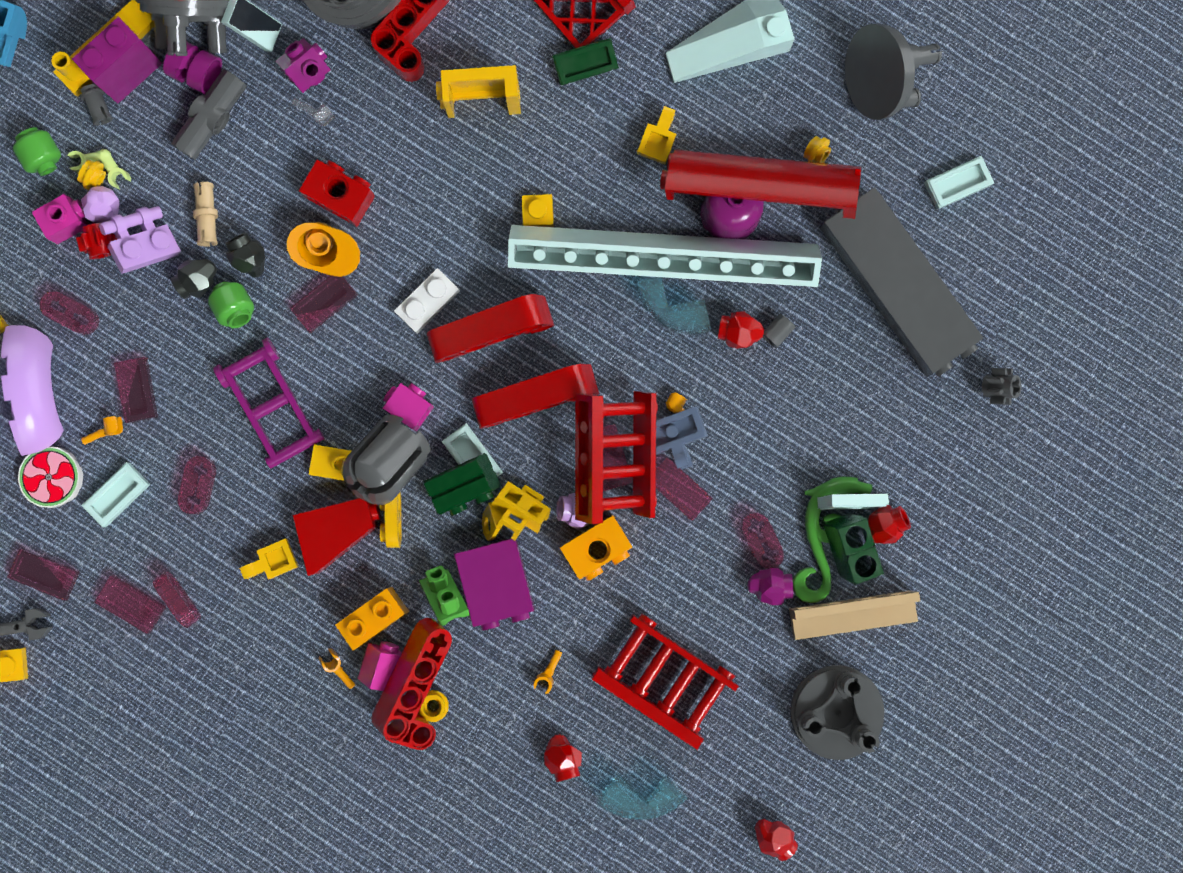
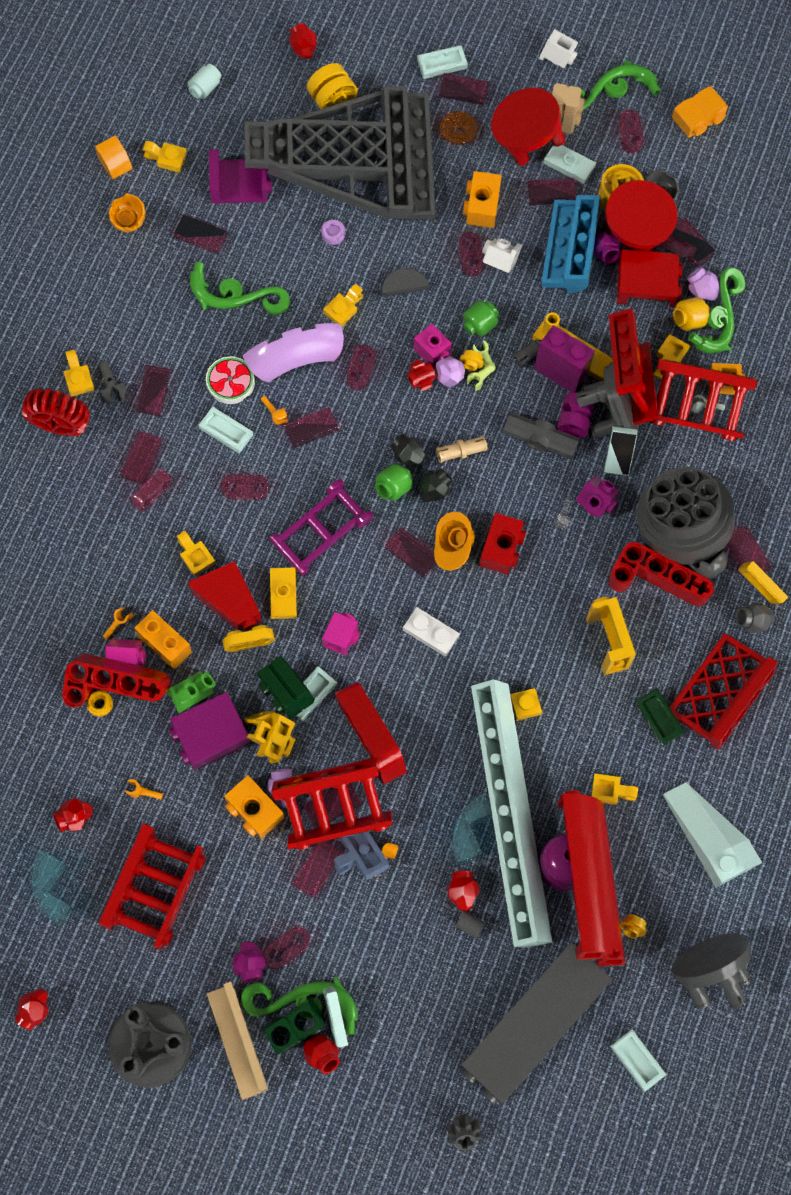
camera: 75 degrees right, 15 degrees down
(48, 702) = (55, 412): none -> red gear
(143, 248) = (423, 409): lavender plate -> none
(384, 461) = (291, 620): dark grey cylinder -> none
(518, 316) = (420, 684): red beam -> none

